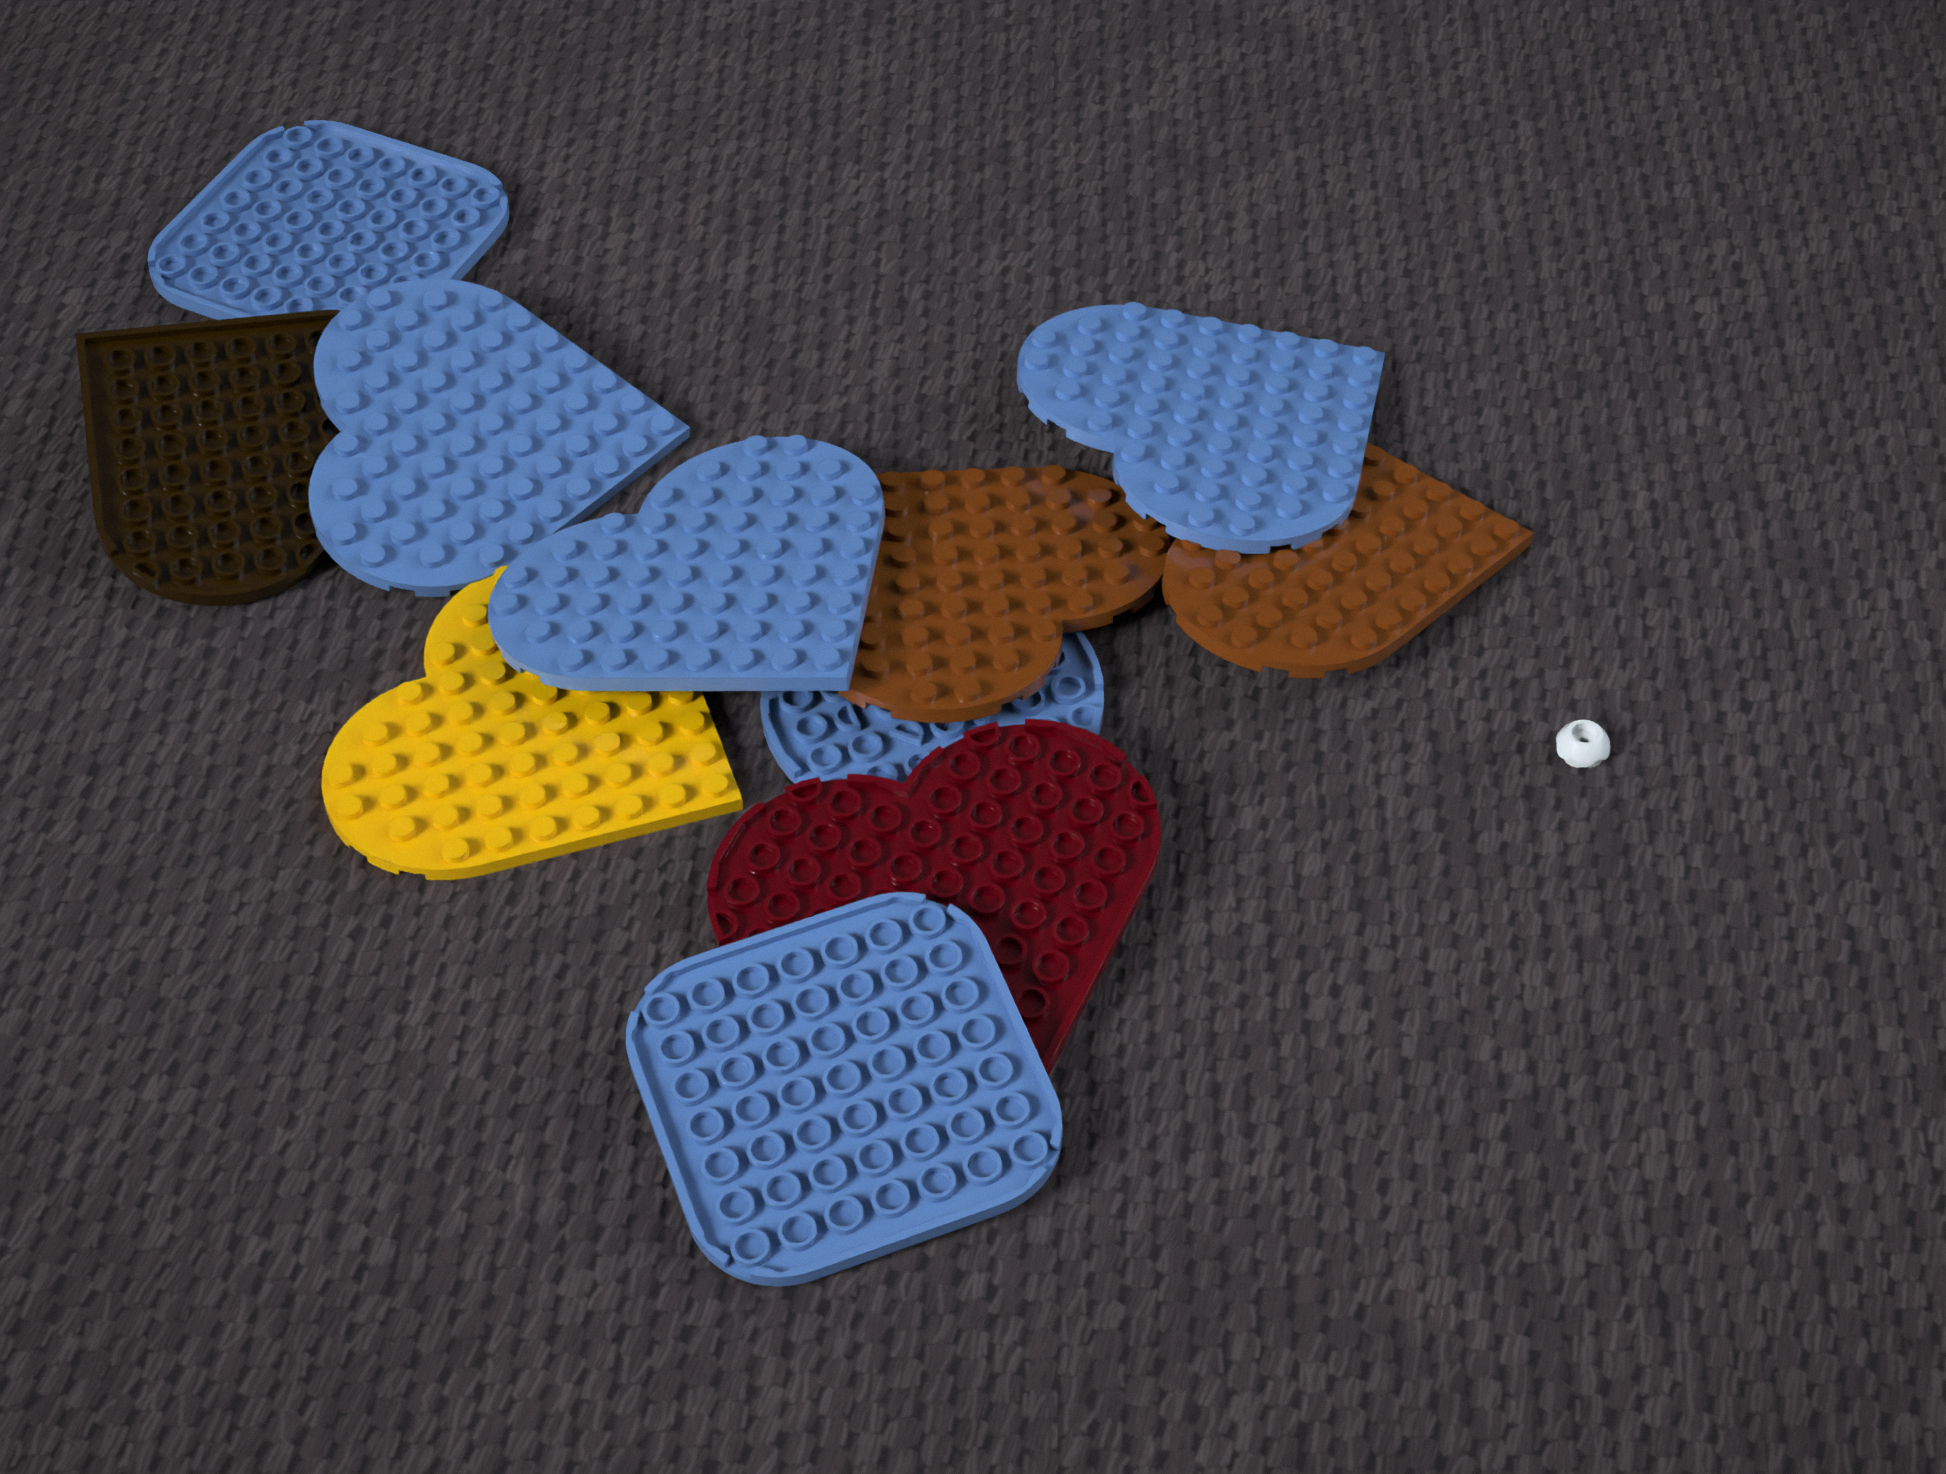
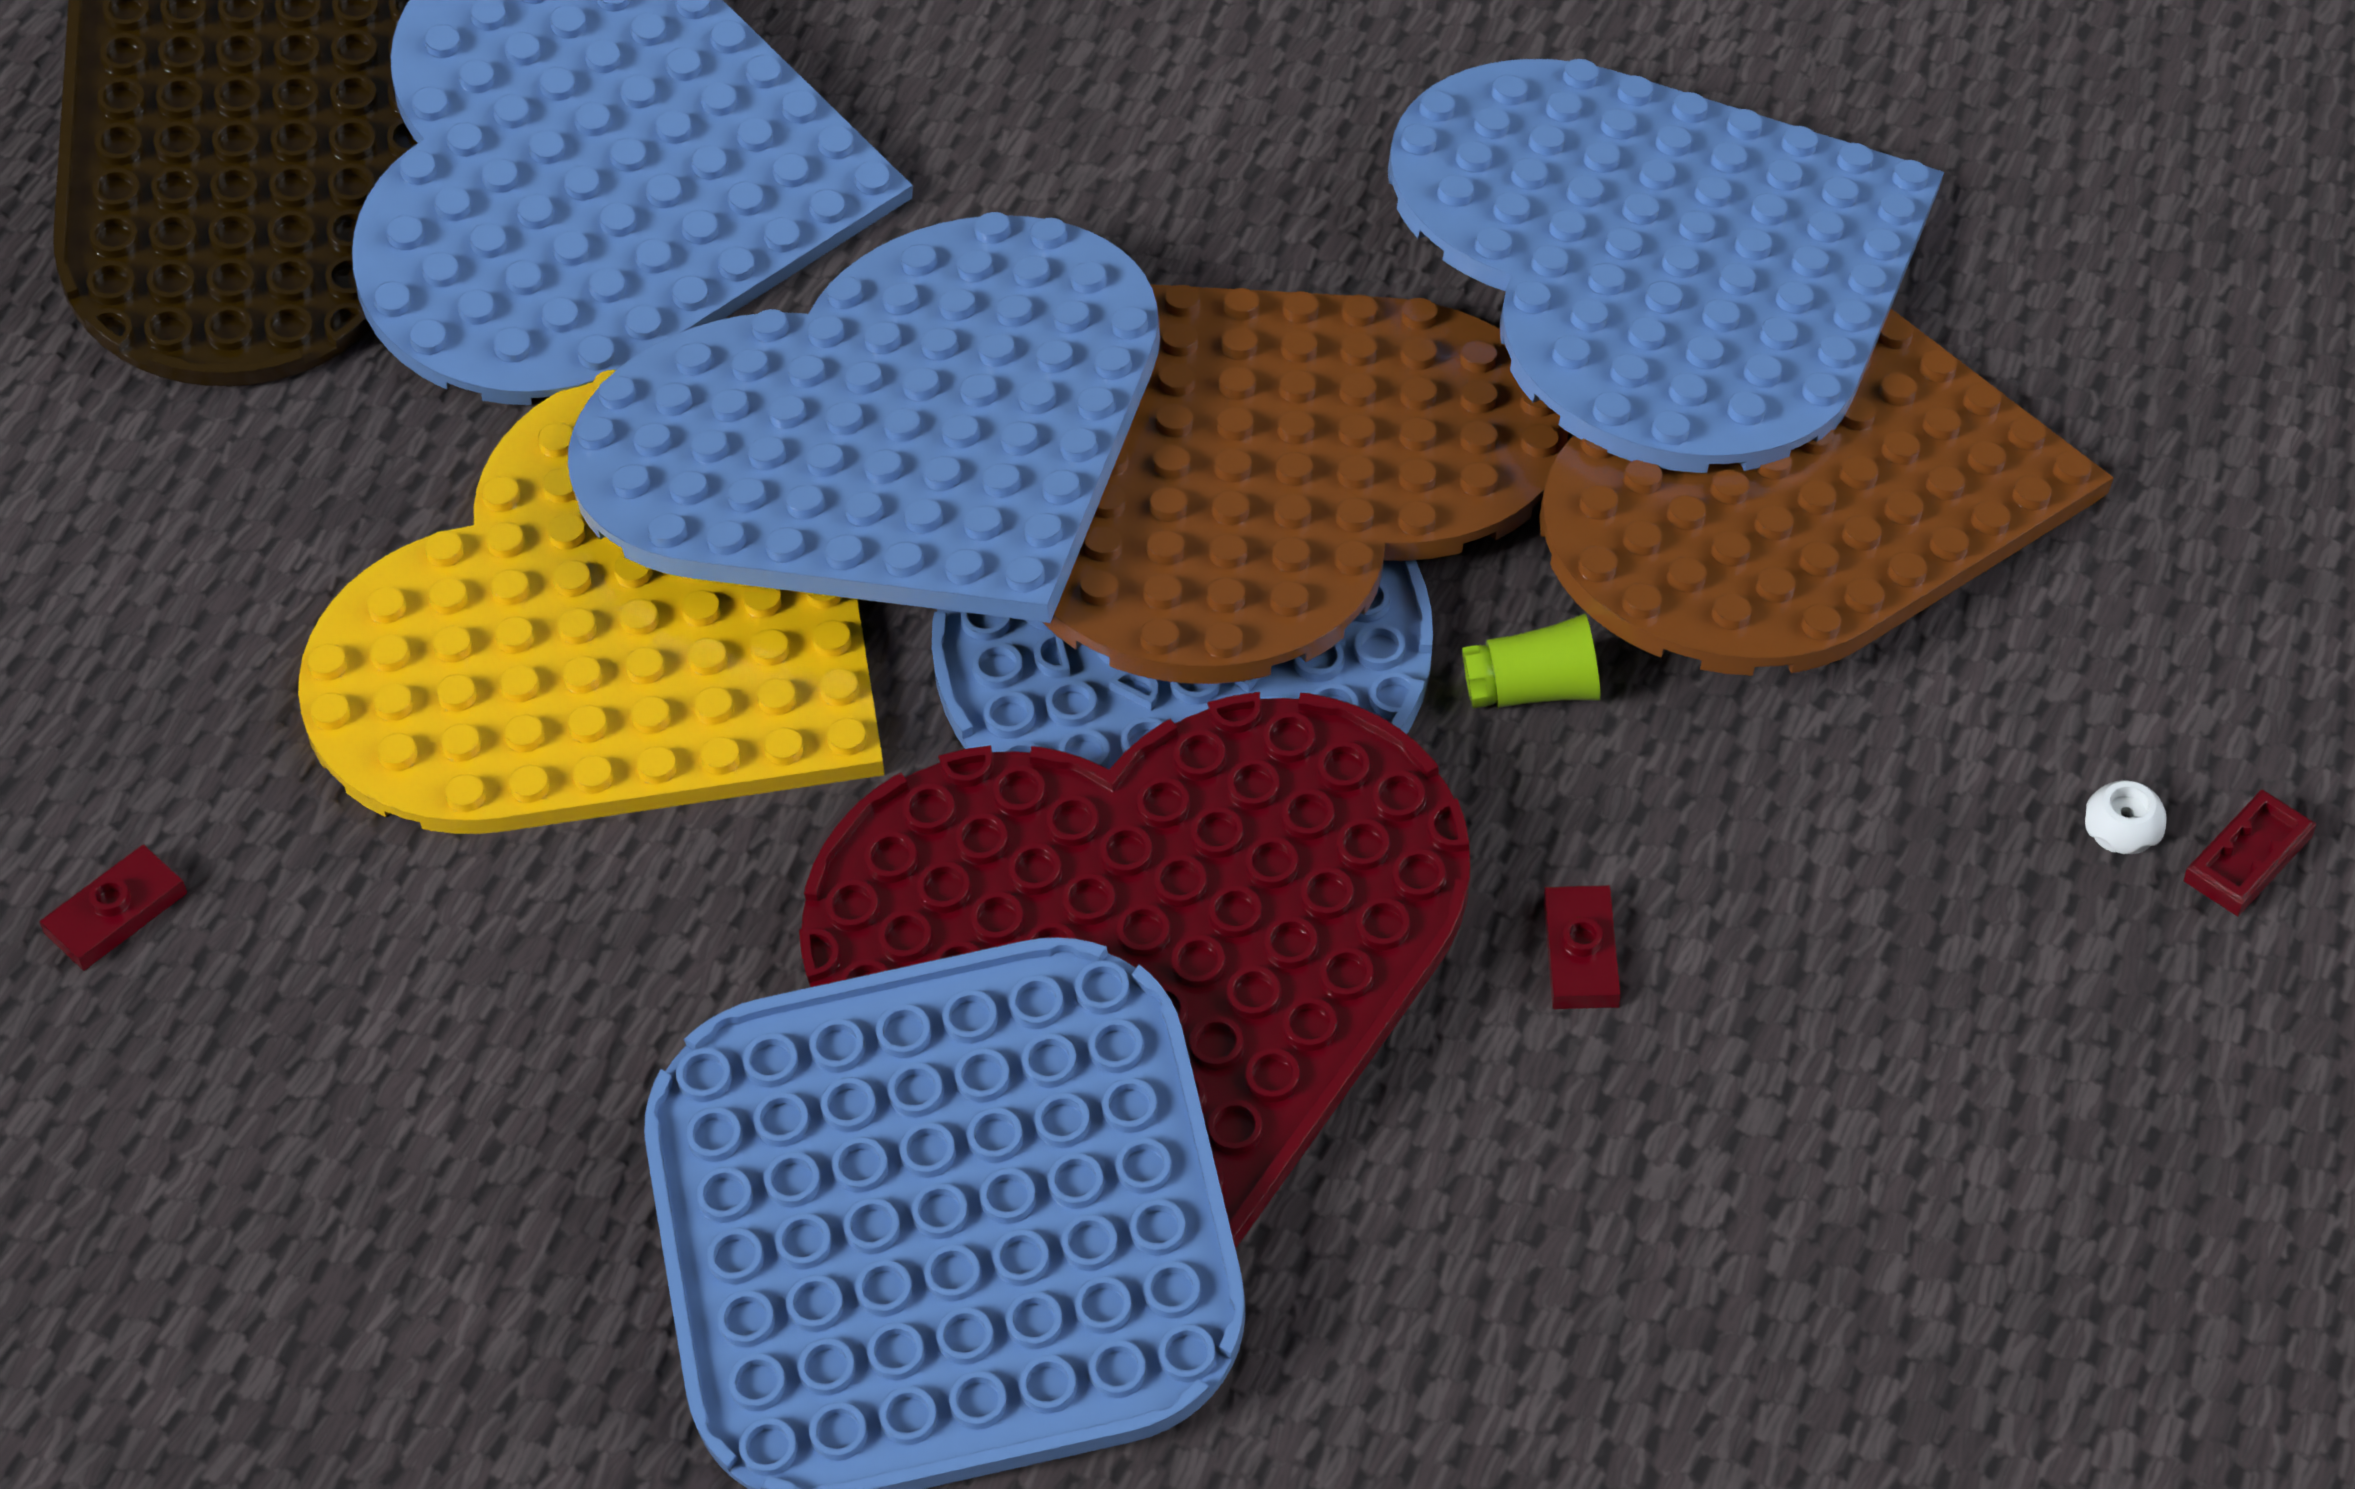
camera: 10 degrees right, 5 degrees up
(217, 954) = (113, 907): none -> dark red plate
(1175, 690) = (1534, 666): none -> lime plant
(1239, 865) = (1581, 947): none -> dark red plate
(1668, 756) = (2249, 852): none -> dark red plate

